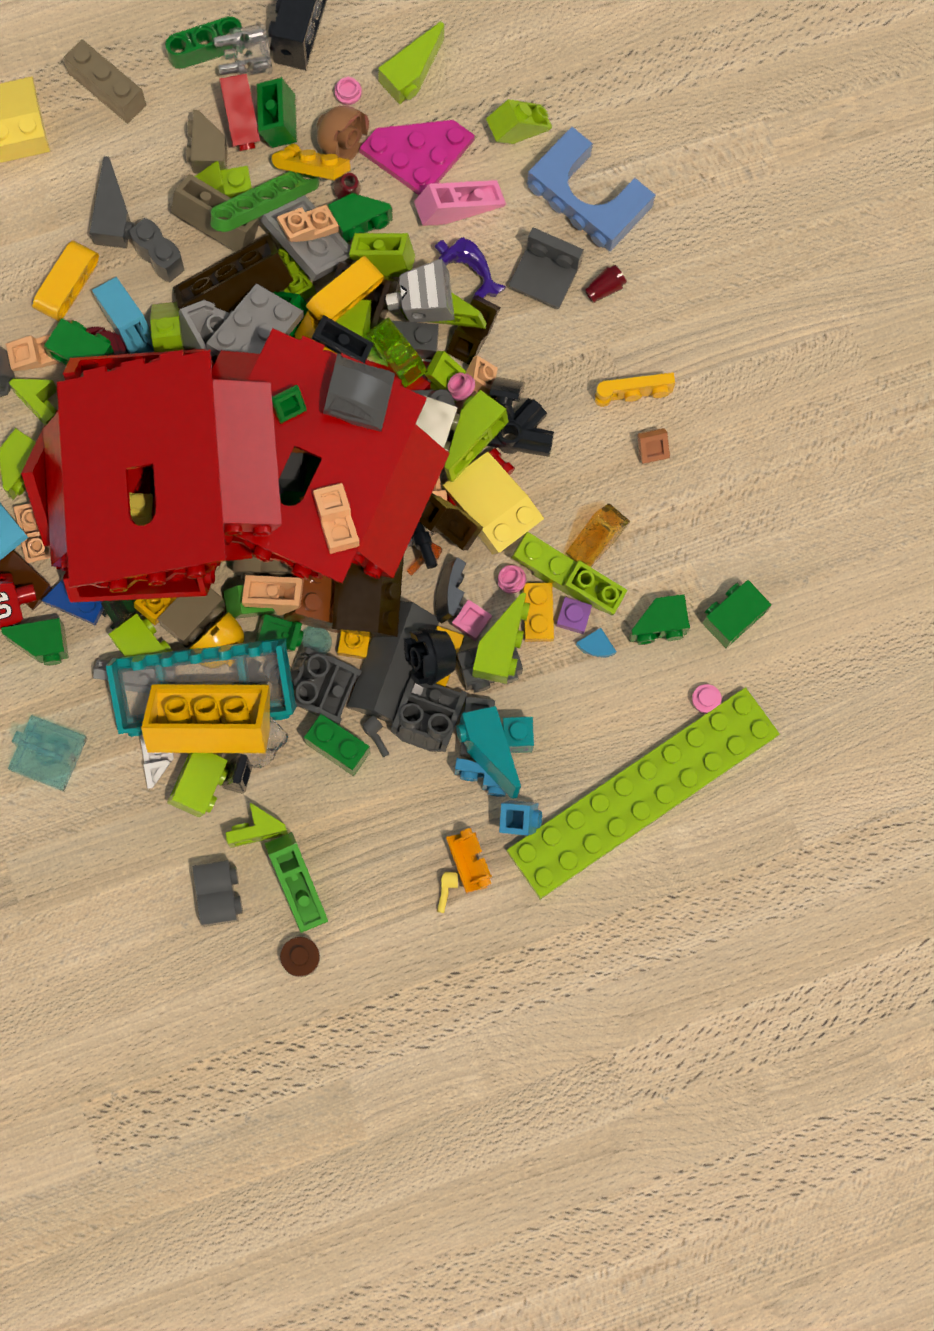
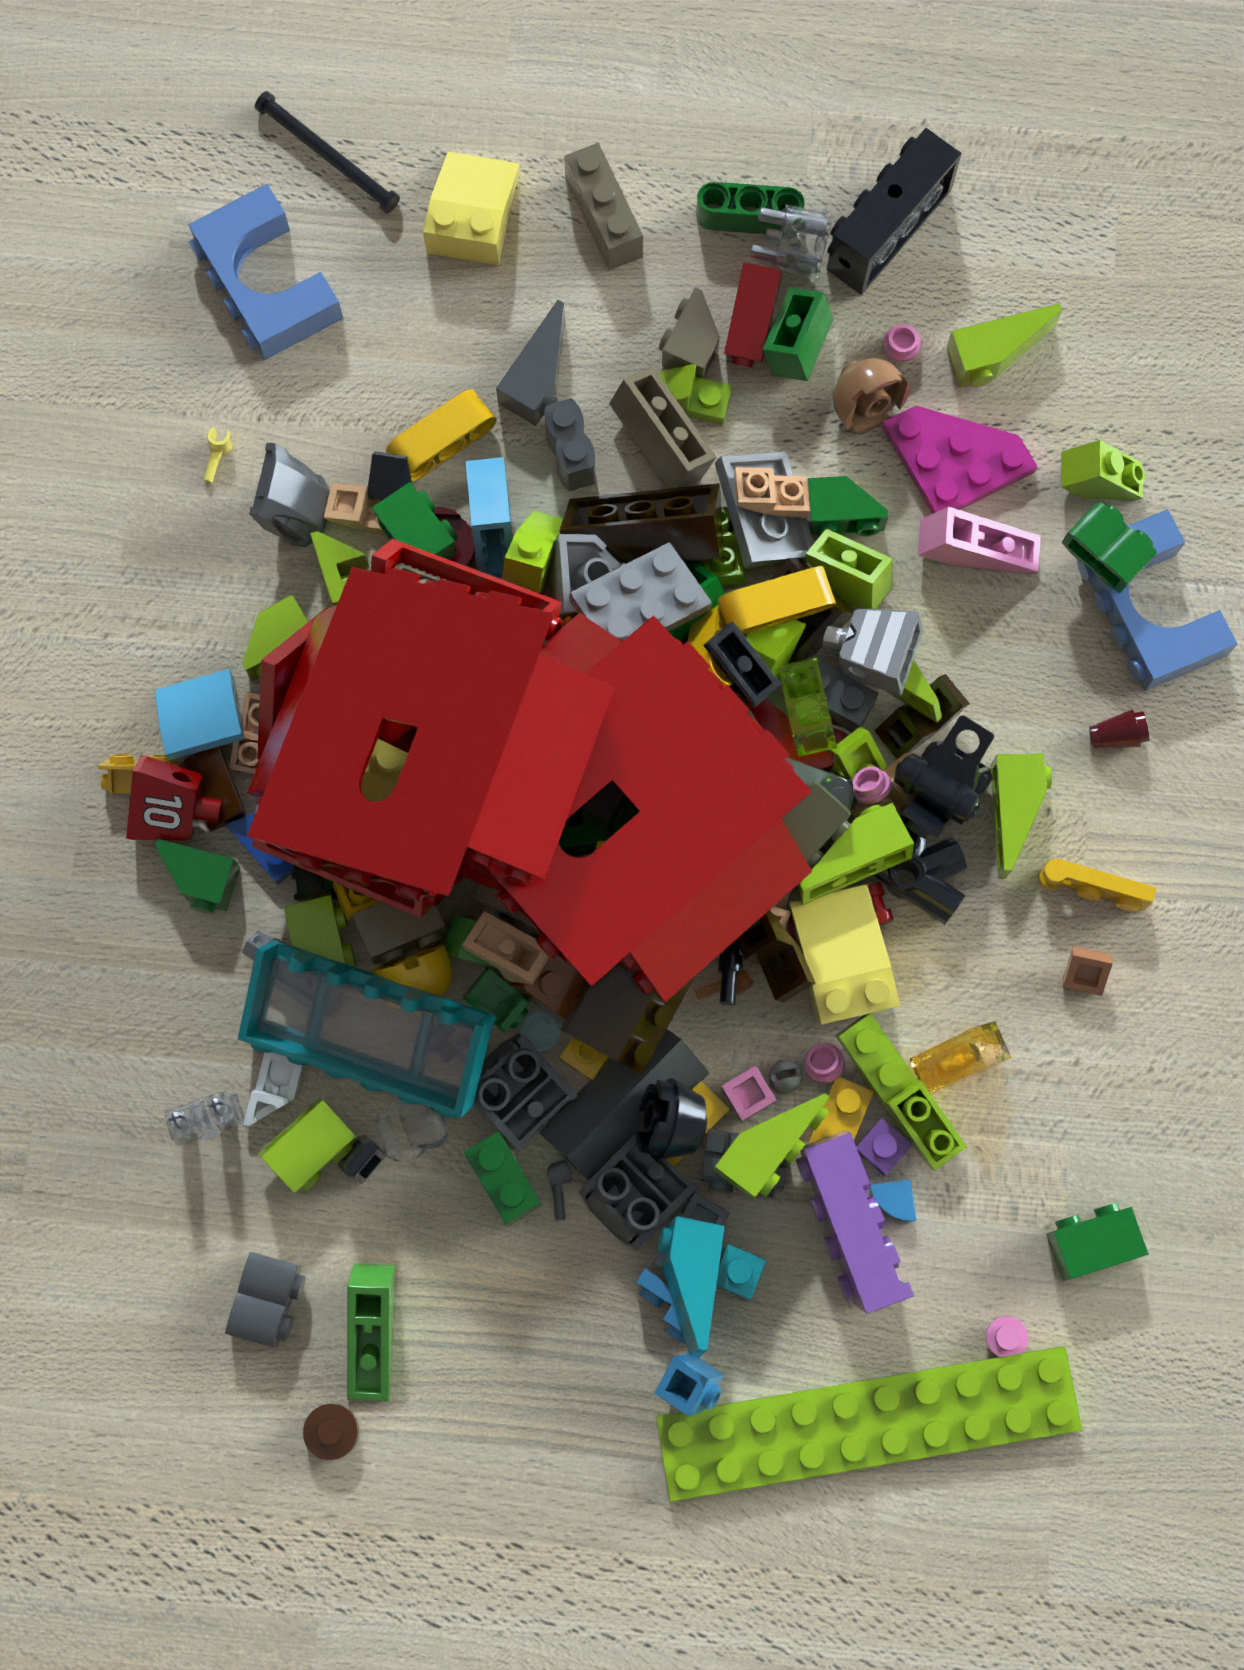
camera: 30 degrees right, 0 degrees up
(42, 321) = (387, 474): none -> black slope
(46, 753) = (142, 1020): clear light blue bracket -> none
(119, 796) = (204, 1117): none -> clear piece
(207, 719) = (351, 1074): yellow slope -> none
(261, 206) = (721, 445): bright green beam -> none
(265, 828) = (363, 1241): lime slope -> none
(288, 404) = (627, 724): green slope -> none
(310, 162) = (811, 415): yellow plate -> none
(336, 518) = (621, 899): light nougat slope -> none
(342, 190) = (834, 465): dark red cone -> none
(359, 393) = (724, 748): dark grey slope -> none
(448, 595) = (731, 1049): black slope -> none
(448, 880) = (563, 1421): light yellow hand -> none
(469, 253) = (961, 616): dark purple animal -> none
(472, 872) = (600, 1393): light orange hinge -> none
(494, 603) = (787, 1084): none -> light grey hinge
(507, 359) = (948, 775): none -> black piece
(545, 165) = (1109, 546): none -> green brick
(547, 268) = (1052, 679): dark grey bracket -> none
(558, 354) = (1017, 794): none -> lime slope
(576, 668) = (852, 1223): none -> medium lavender wedge
(663, 619) = (997, 1205): green slope -> none

